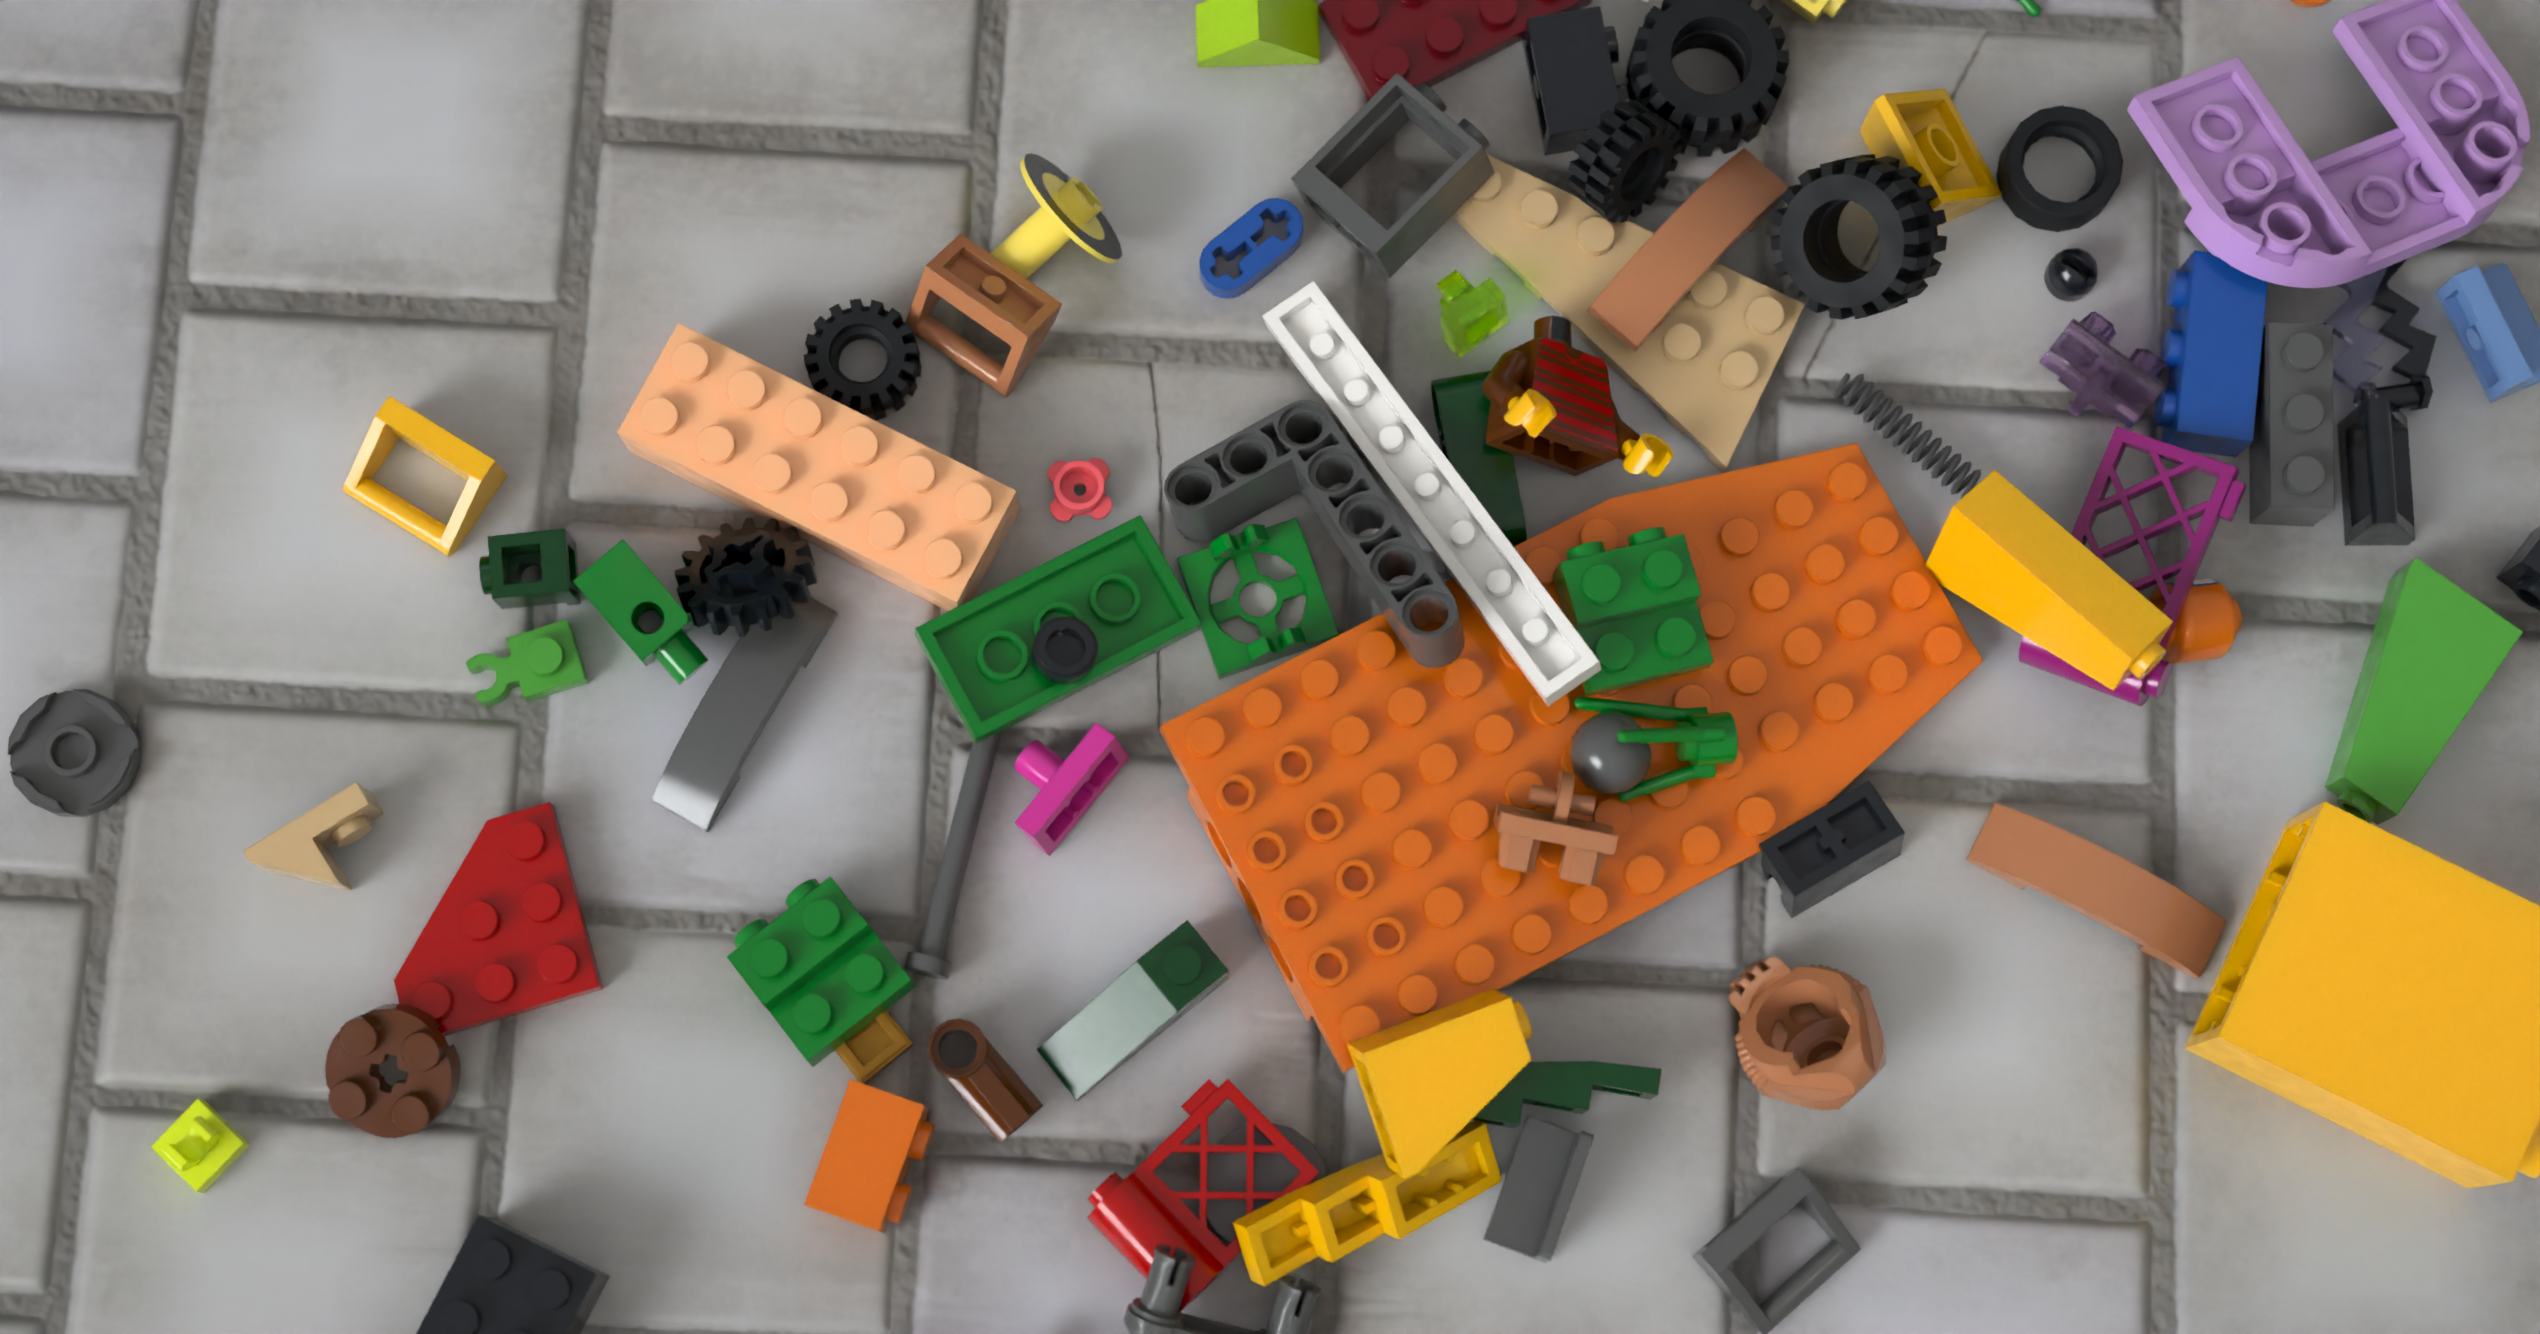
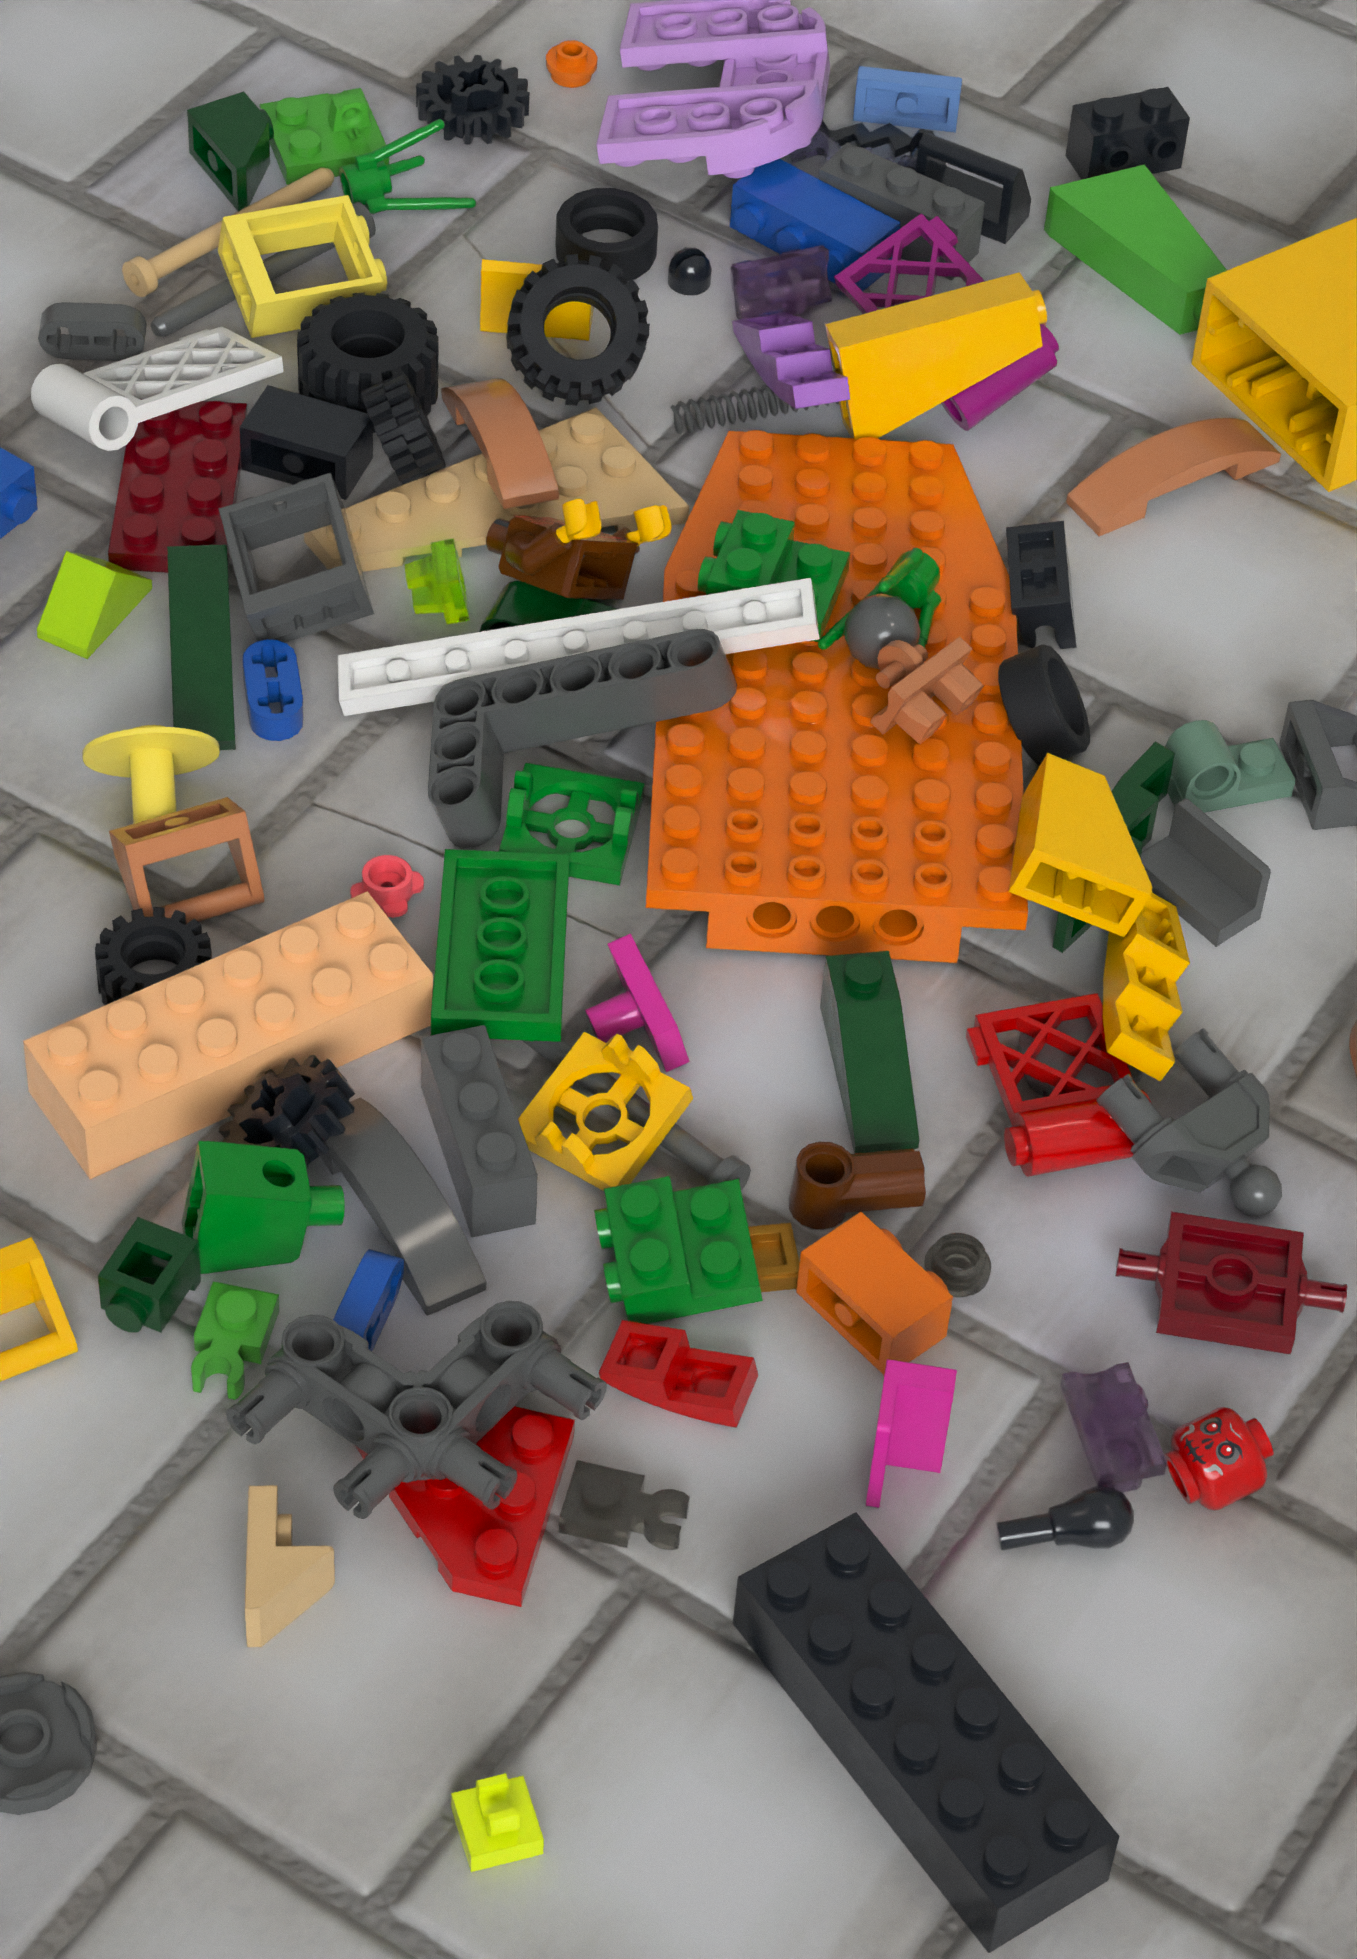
camera: 60 degrees left, 30 degrees down
(360, 1091) = (549, 1571): reddish brown plate -> none
(486, 836) = (383, 1409): none -> dark grey pin
(540, 1059) = (611, 1505): none -> clear smoke plate
(607, 755) = (371, 1295): none -> blue beam
(702, 1040) = (665, 1372): none -> red slope
(726, 1258) = (911, 1421): none -> dark pink panel
(839, 733) = (478, 1131): none -> dark grey brick
(930, 1202) = (961, 1252): none -> clear smoke plate
(969, 830) = (636, 1068): none -> yellow piece
(1064, 650) = (529, 932): black tile -> none
(1249, 158) = (201, 641): none -> dark green slope
(1627, 921) = (1044, 704): none -> black tyre
(1699, 1145) = (1225, 775): none -> sand green plate
(1806, 1033) = (1203, 654): nougat helmet -> none
(1981, 441) = (789, 360): none -> medium lavender slope

